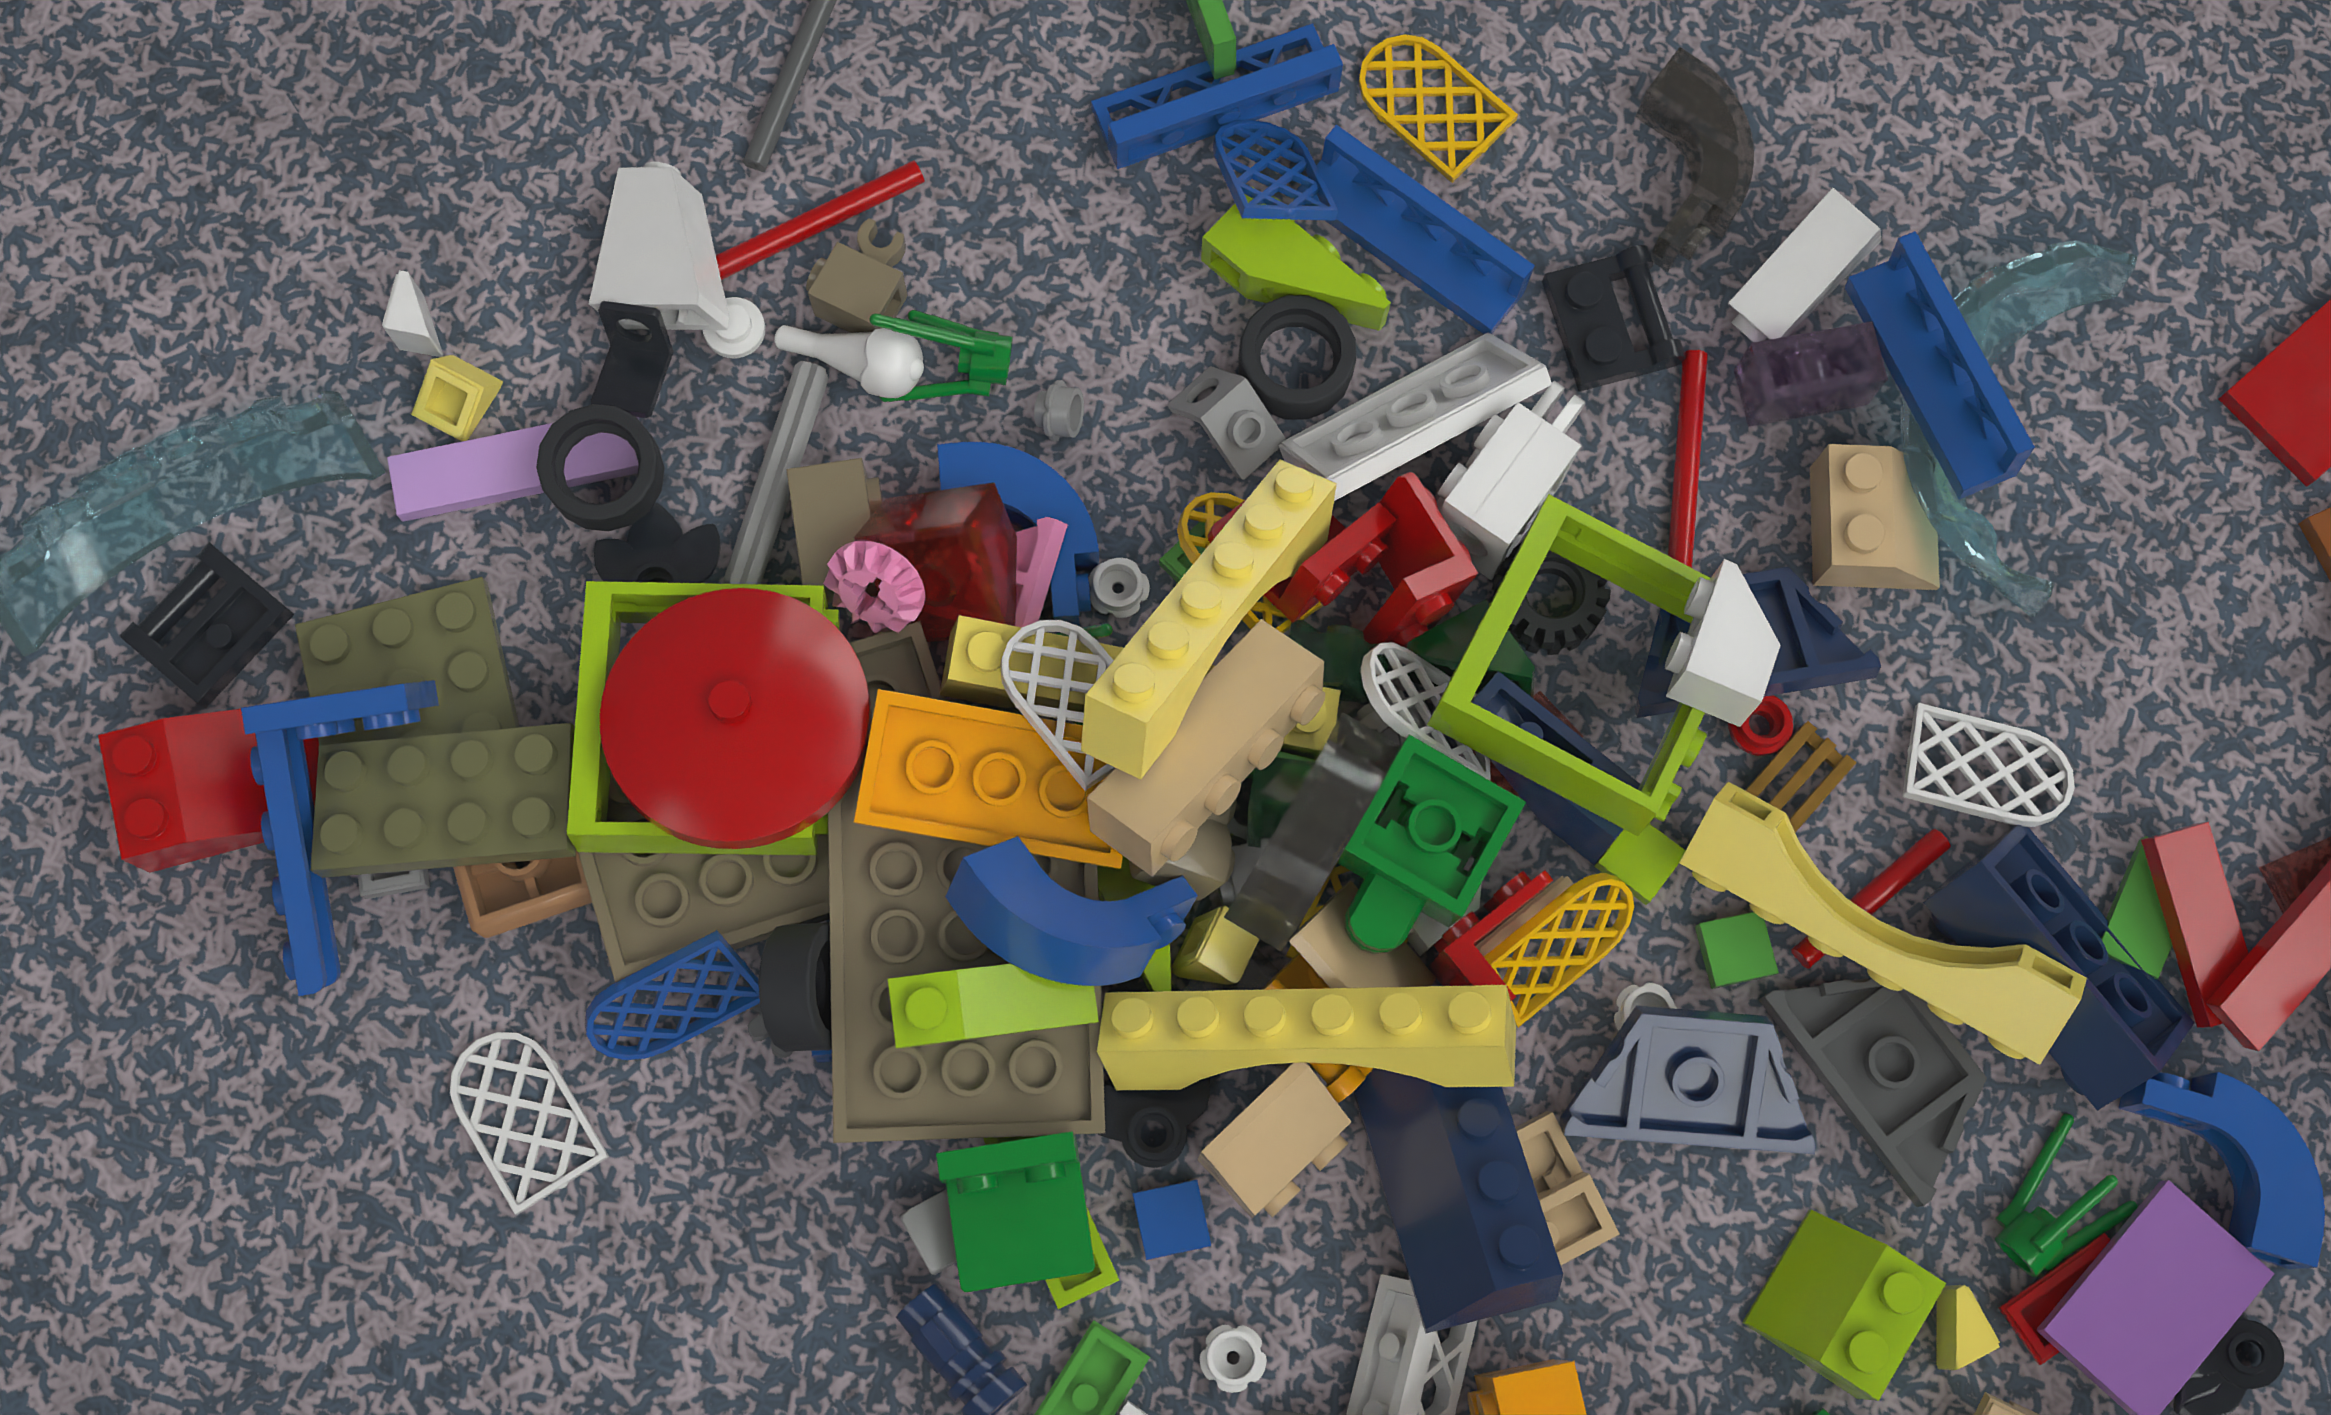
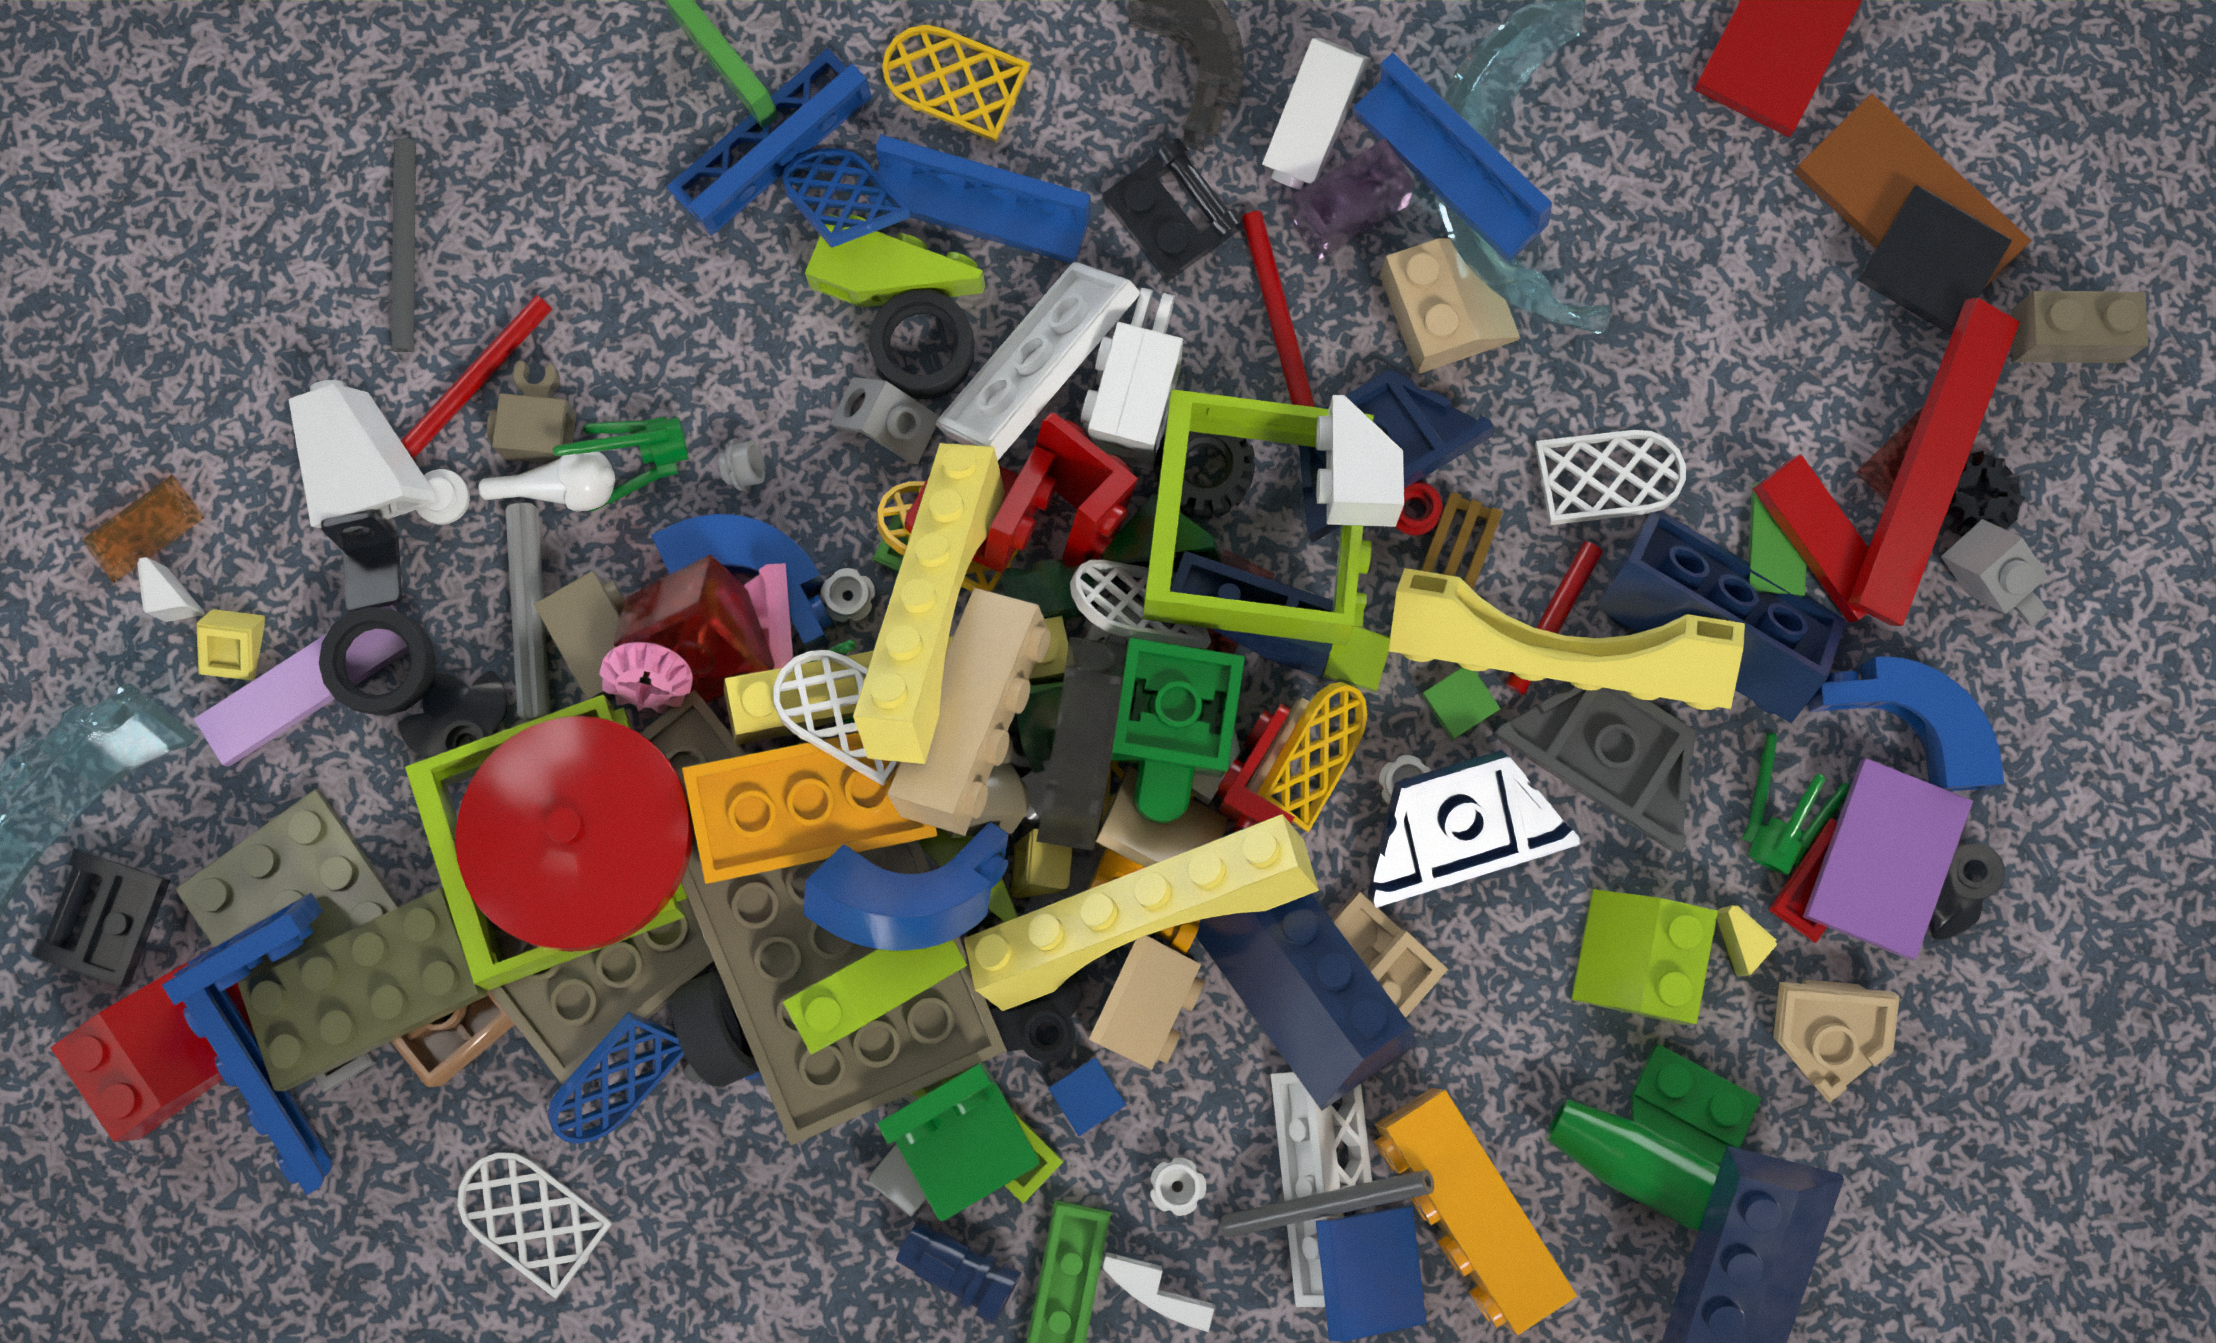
camera: 15 degrees left, 5 degrees up
(415, 246) = (142, 528): none -> clear orange tile

